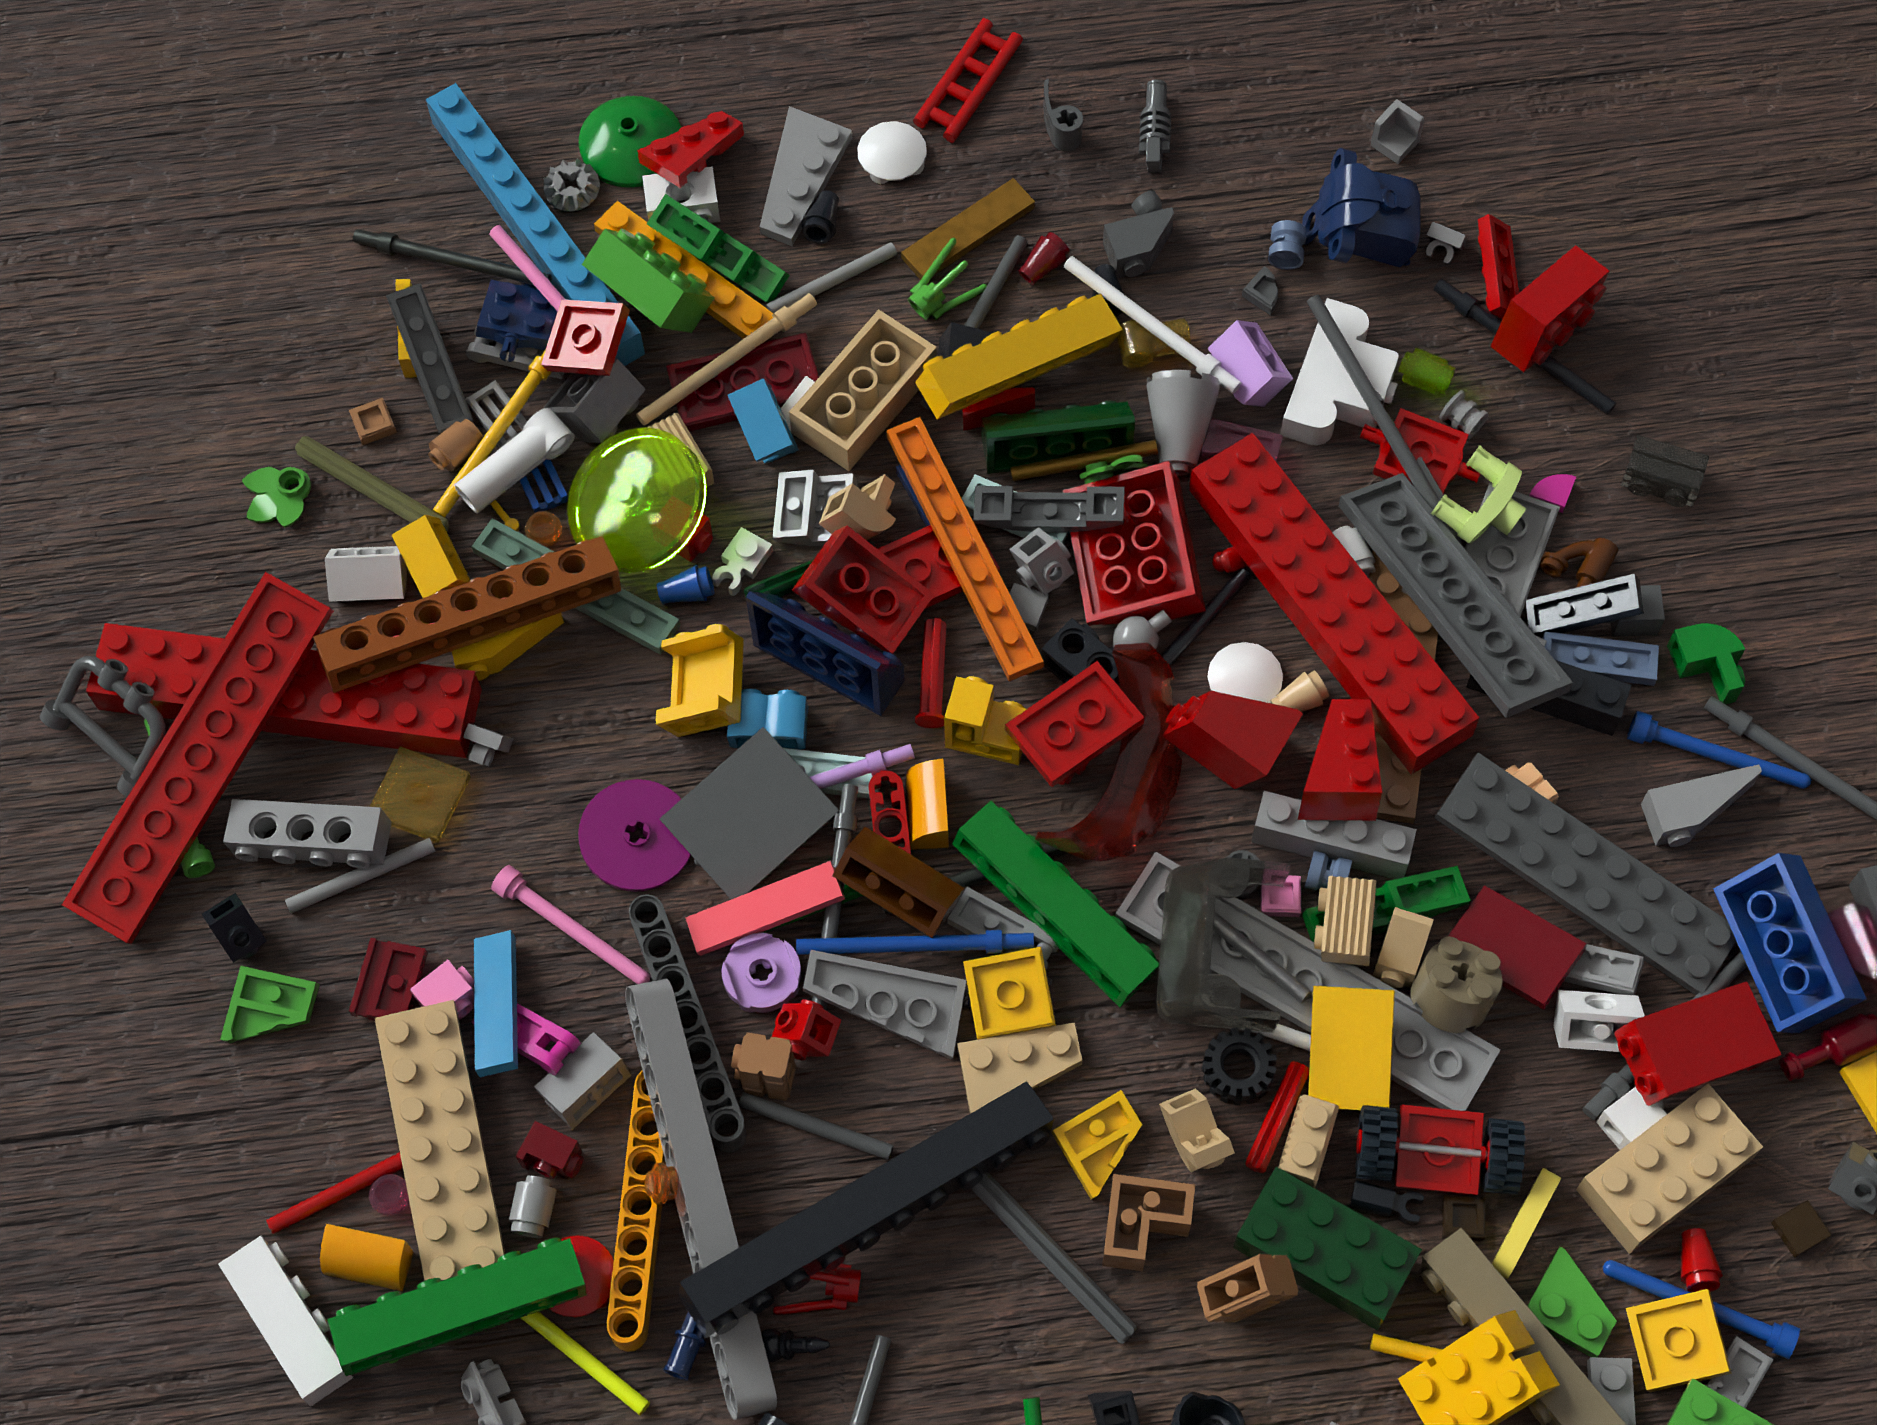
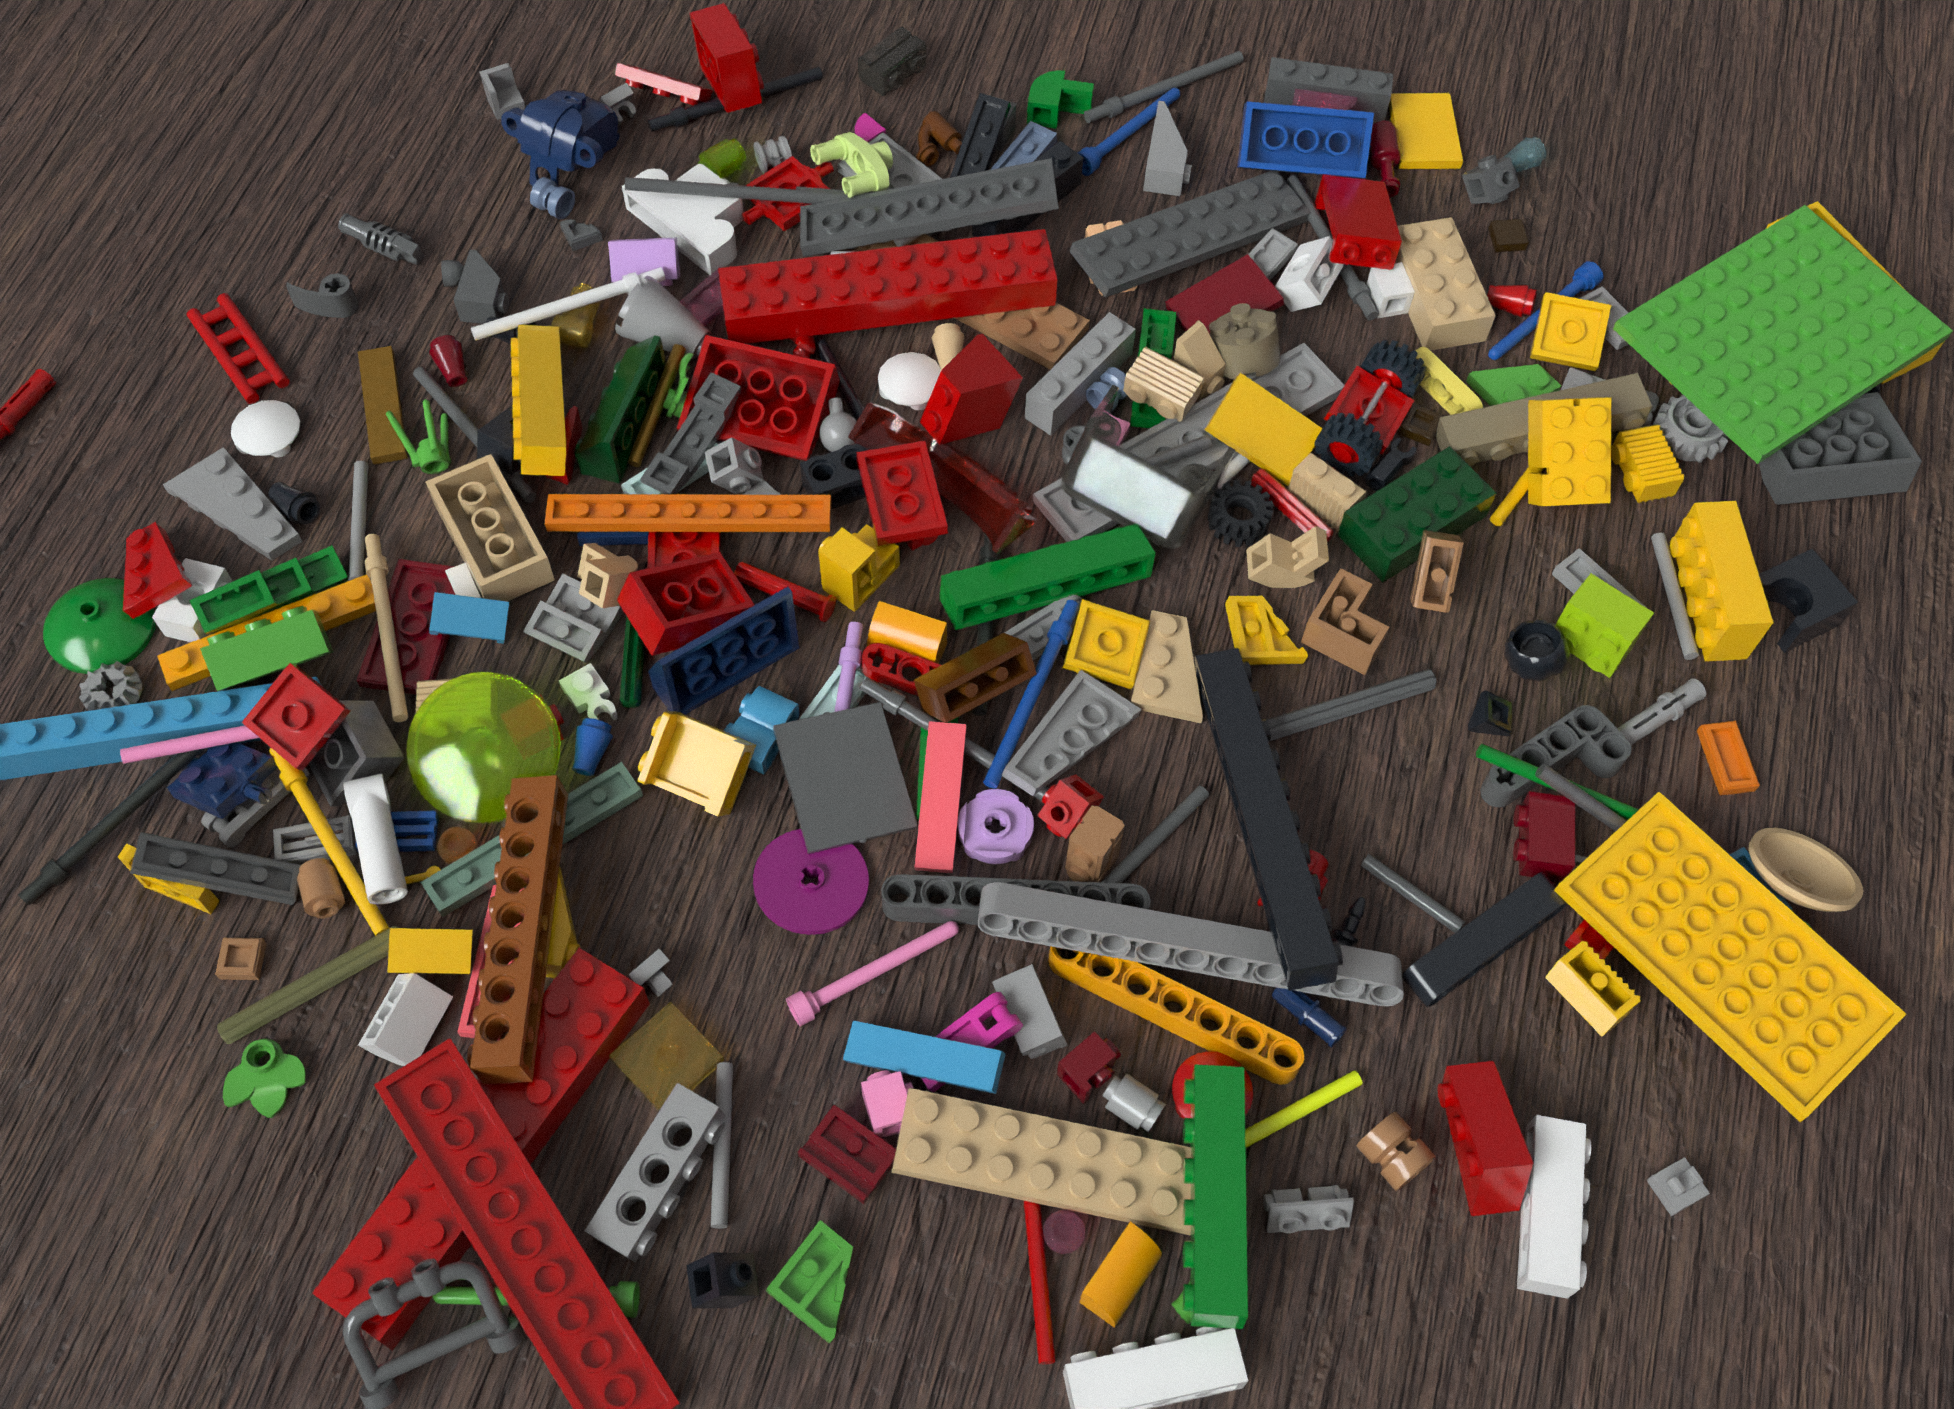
camera: 70 degrees left, 5 degrees down
(661, 1183) = (1172, 967): clear orange plate -> none
(1345, 767) = (1038, 326): red wedge -> none

